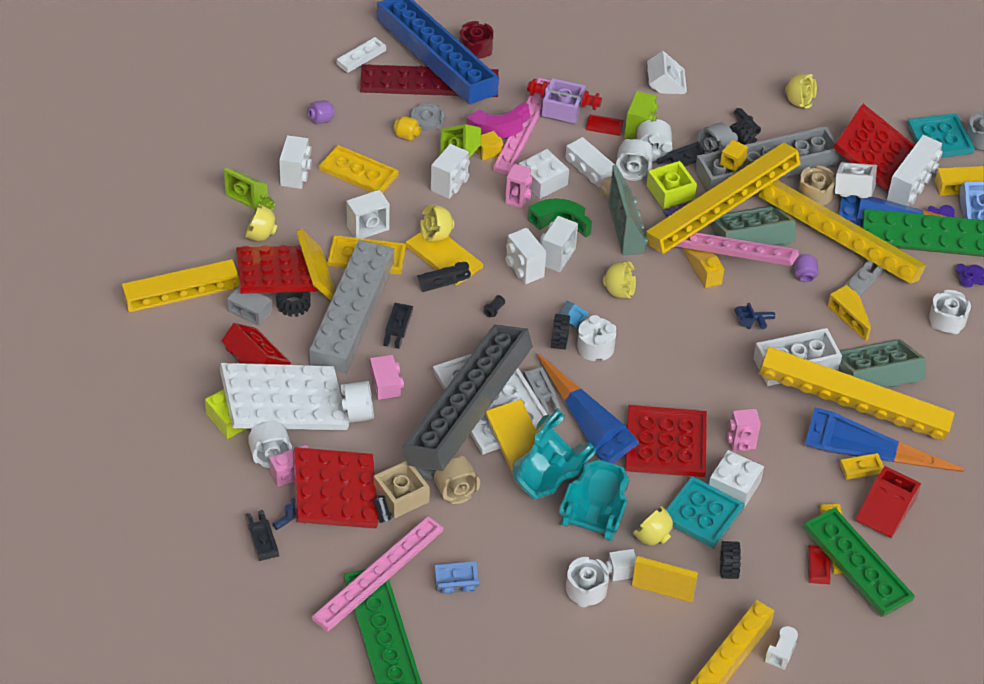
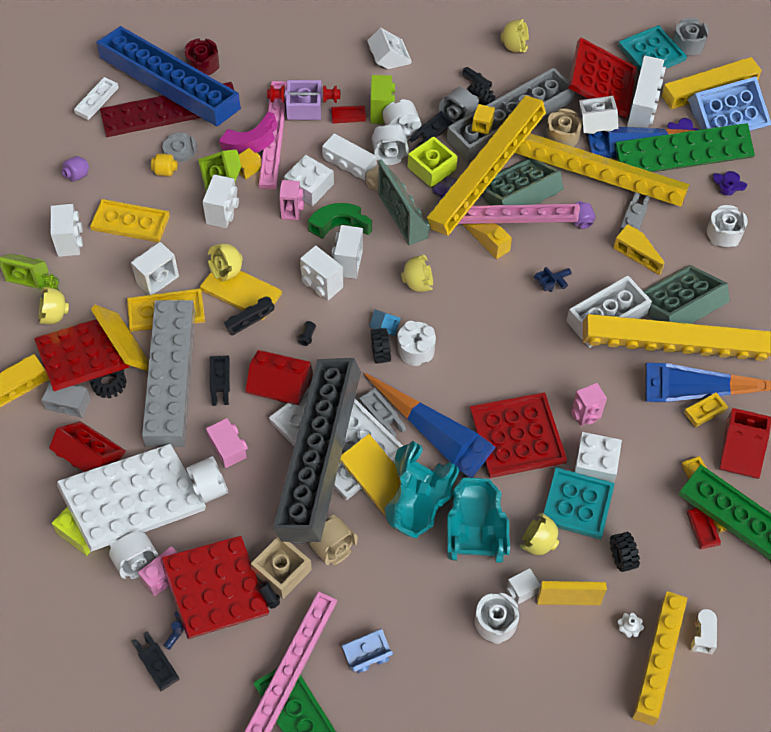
camera: 15 degrees left, 10 degrees up
(452, 333) = (278, 377): none -> red slope
(713, 623) = (630, 625): none -> white plant

